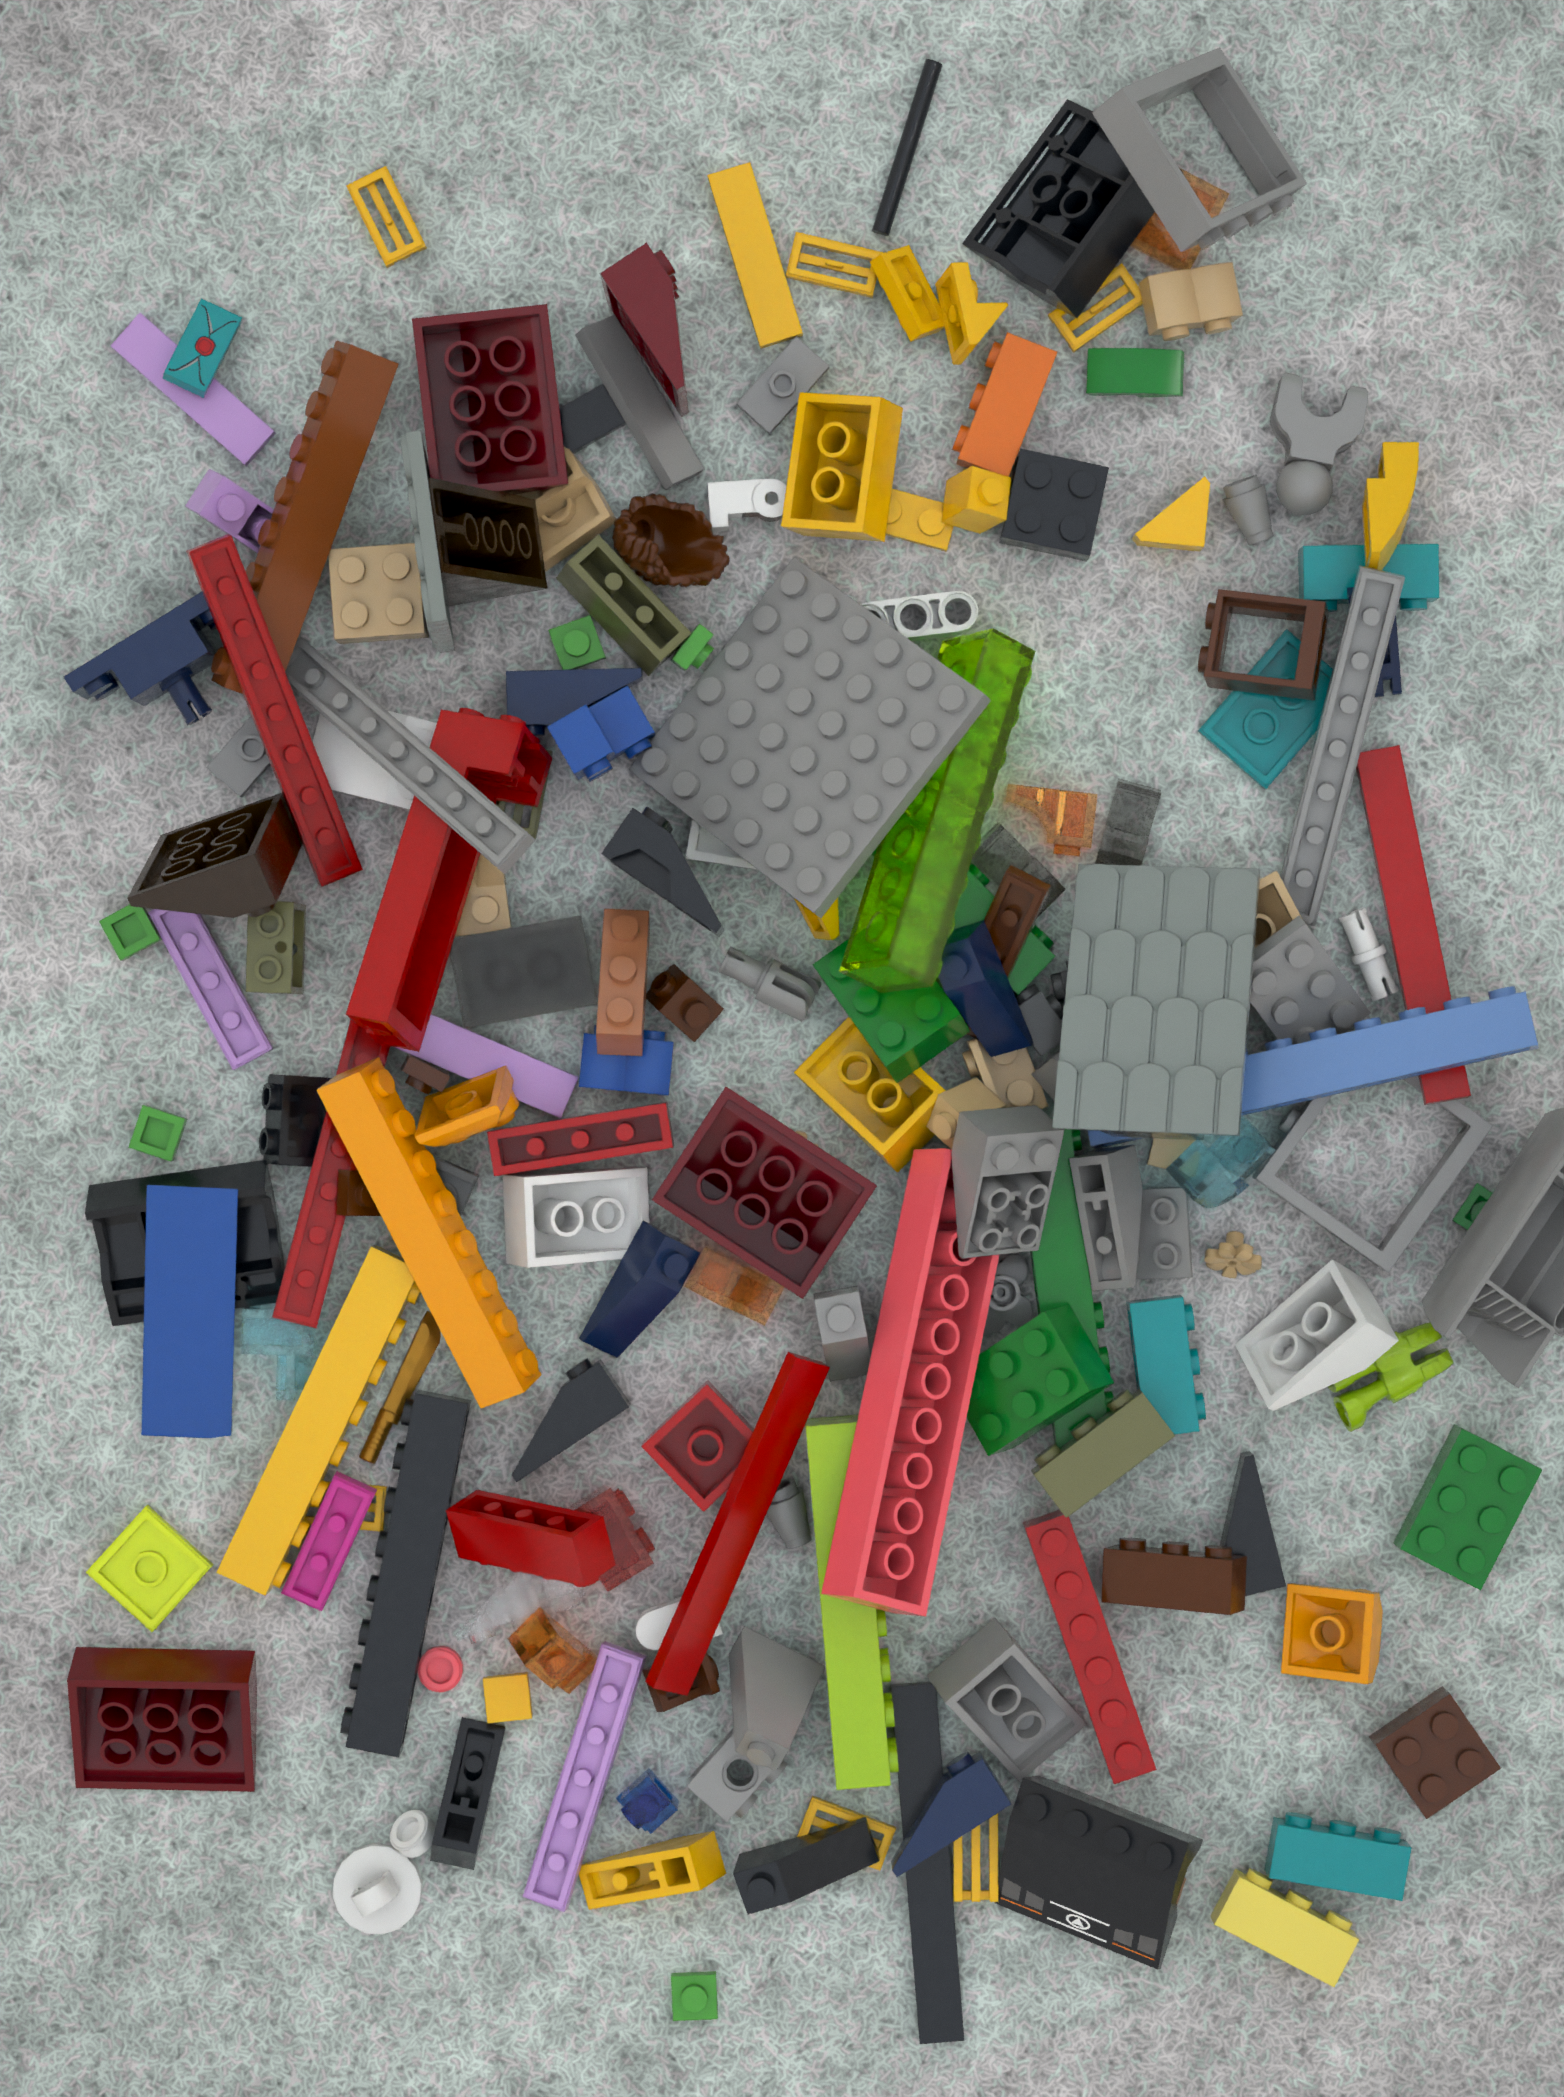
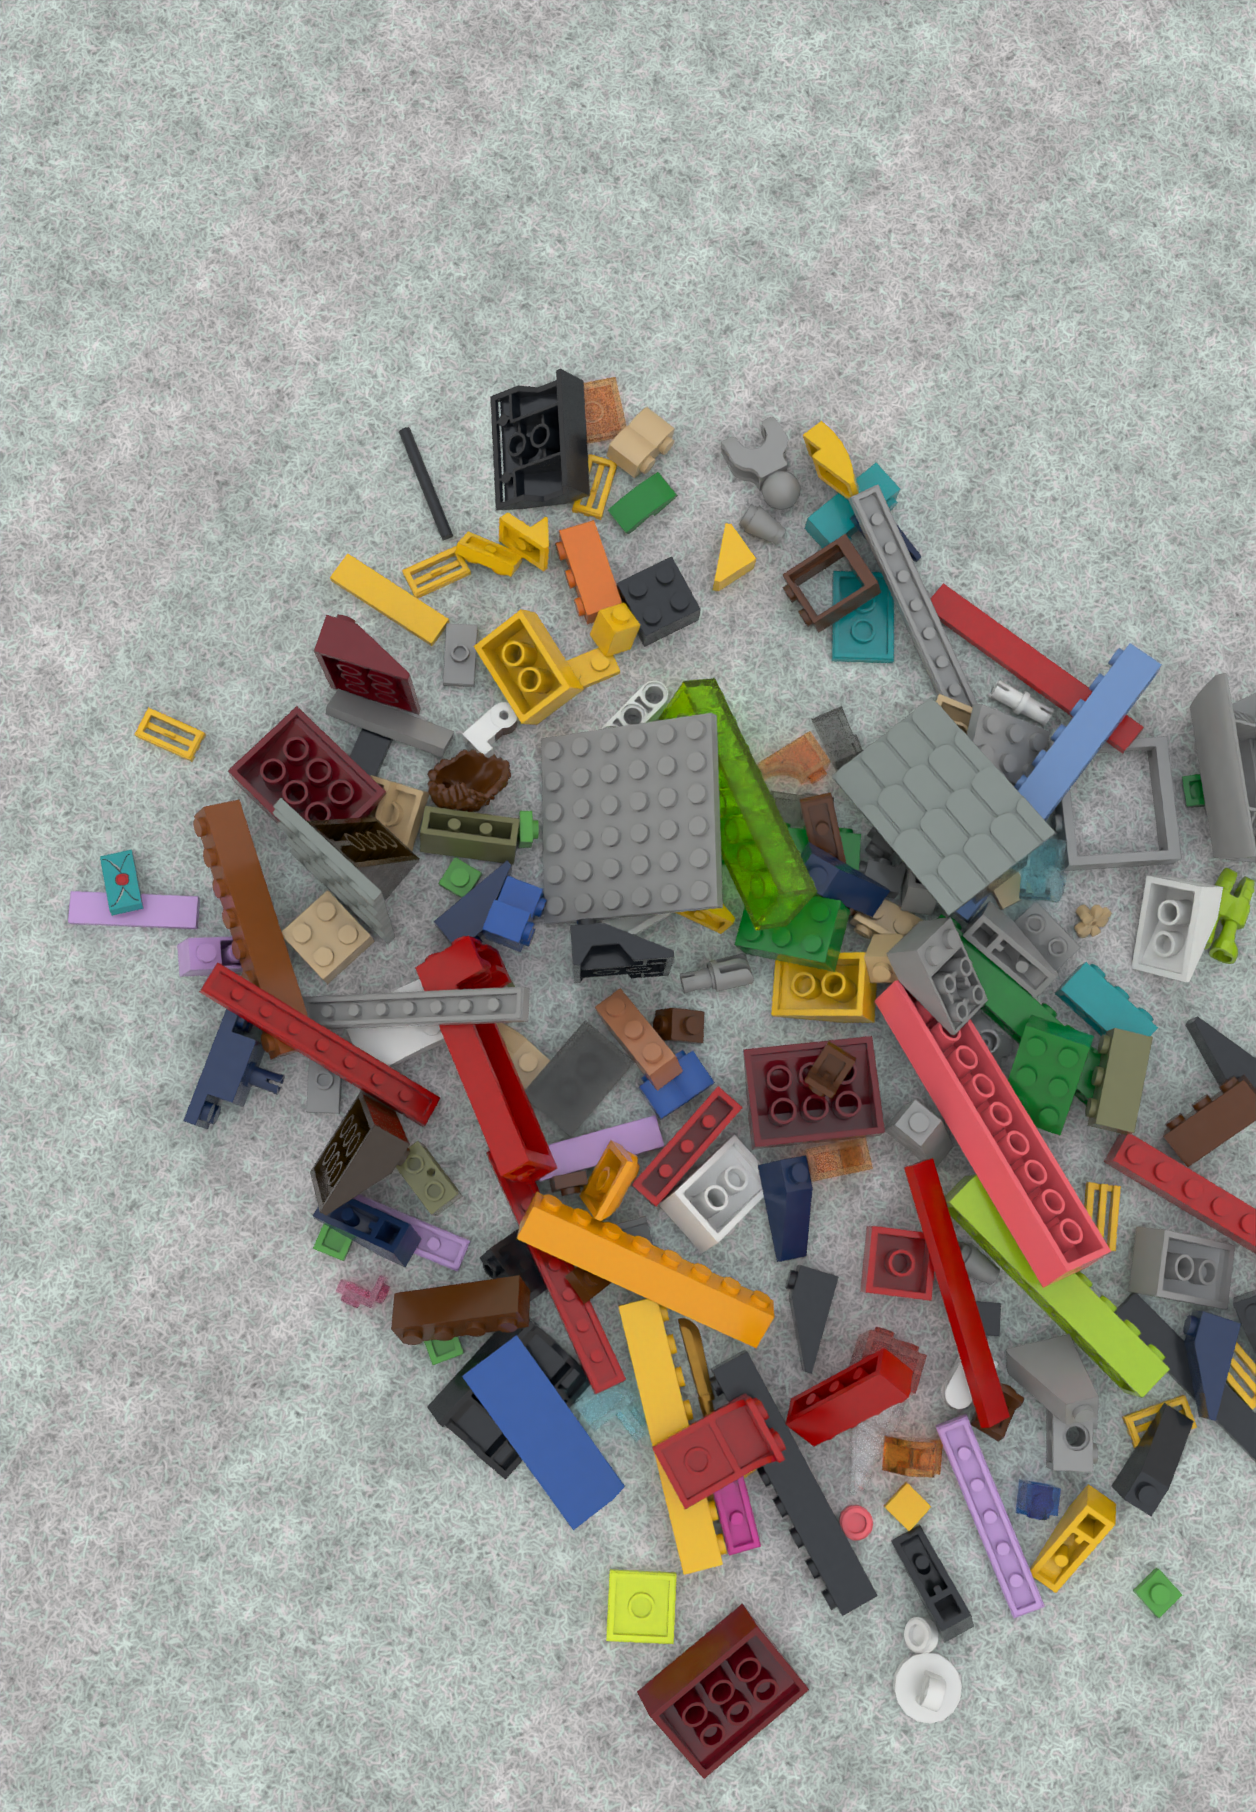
camera: 45 degrees left, 10 degrees down
(106, 1007) = (355, 1294): none -> clear pink bracket
(178, 960) = (373, 1230): none -> dark blue slope
(201, 1115) = (461, 1310): none -> reddish brown brick
(352, 1477) = (719, 1449): none -> red bracket
(755, 1578) = (990, 1317): none -> black tile
(795, 1185) = (829, 1070): none -> reddish brown bracket
(995, 1549) = (1113, 1212): none -> yellow tile
(1239, 124) = (579, 376): light grey window -> none

